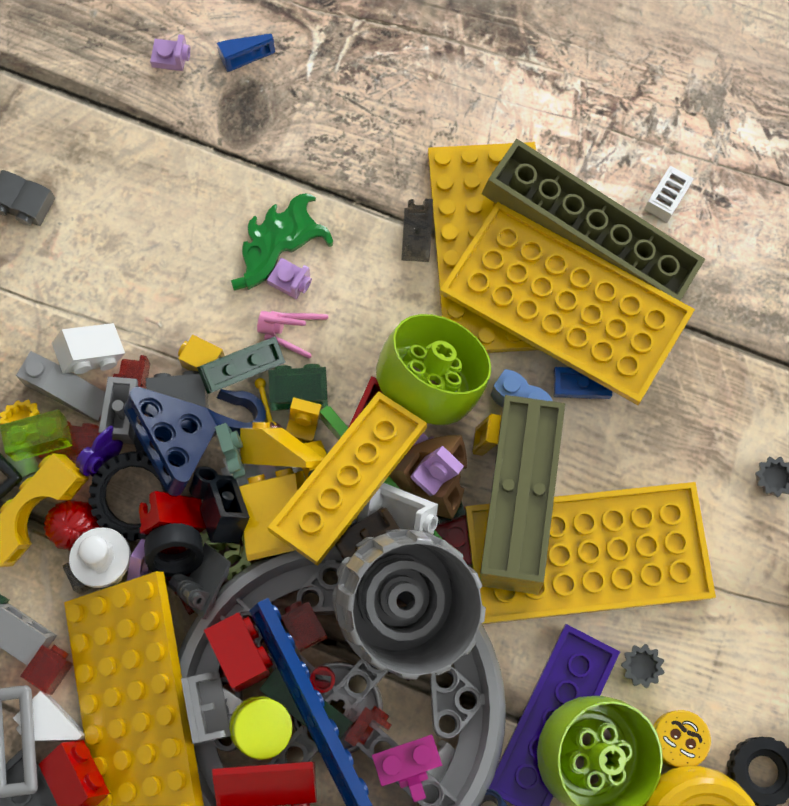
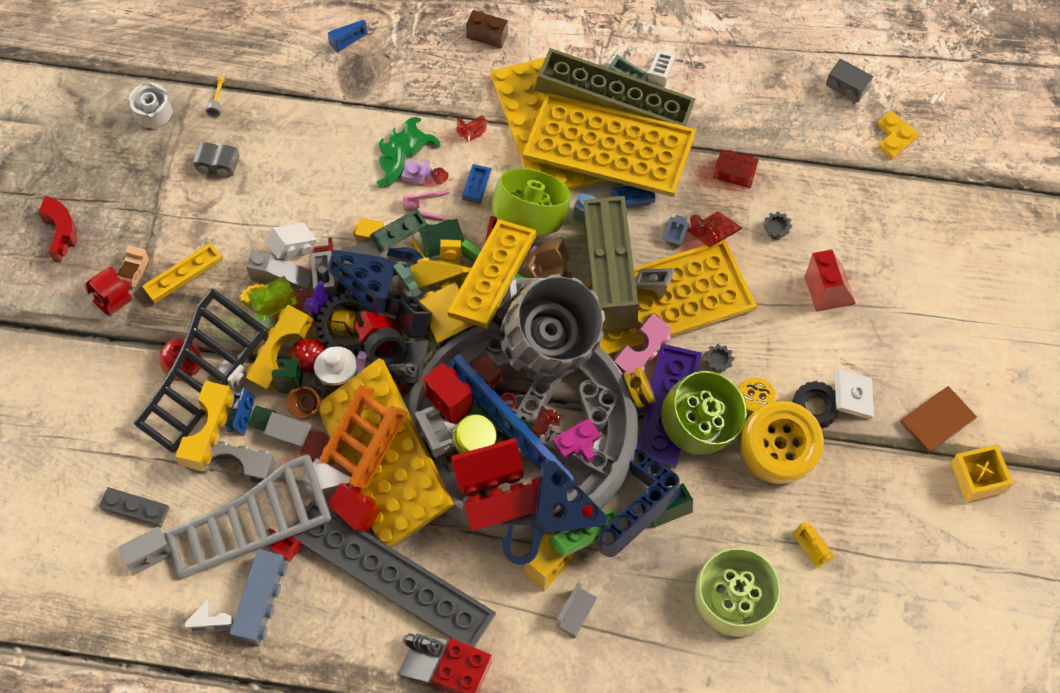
camera: 10 degrees left, 10 degrees down
(37, 119) = (213, 107): none -> light grey hinge
(37, 558) = (289, 378): none -> dark green hinge
(45, 597) = (302, 402): none -> dark orange hair
(131, 694) = (379, 444): none -> orange fence
(132, 486) = (343, 322): none -> yellow head
(170, 54) = (295, 48): lavender bracket -> none
(319, 290) = (439, 175): none -> clear red hinge
(367, 315) = (476, 184): none -> blue plate
(383, 232) = (473, 129): none -> clear red bracket
(417, 231) = (497, 124): clear smoke hinge -> none
(436, 470) = (550, 259): lavender bracket -> none
(438, 83) = (487, 29): none -> reddish brown brick
(486, 434) = (577, 237): yellow tile -> none
(516, 693) = (639, 386): none -> yellow head
(520, 644) = (654, 333): none -> bright pink arch
(579, 529) = (654, 280): none -> light grey slope
(624, 185) = (627, 66): none -> sand green slope
(630, 451) = (676, 230): none -> sand blue bracket
(682, 462) = (713, 228): none -> clear red hinge
(737, 374) = (735, 168): none -> clear red brick

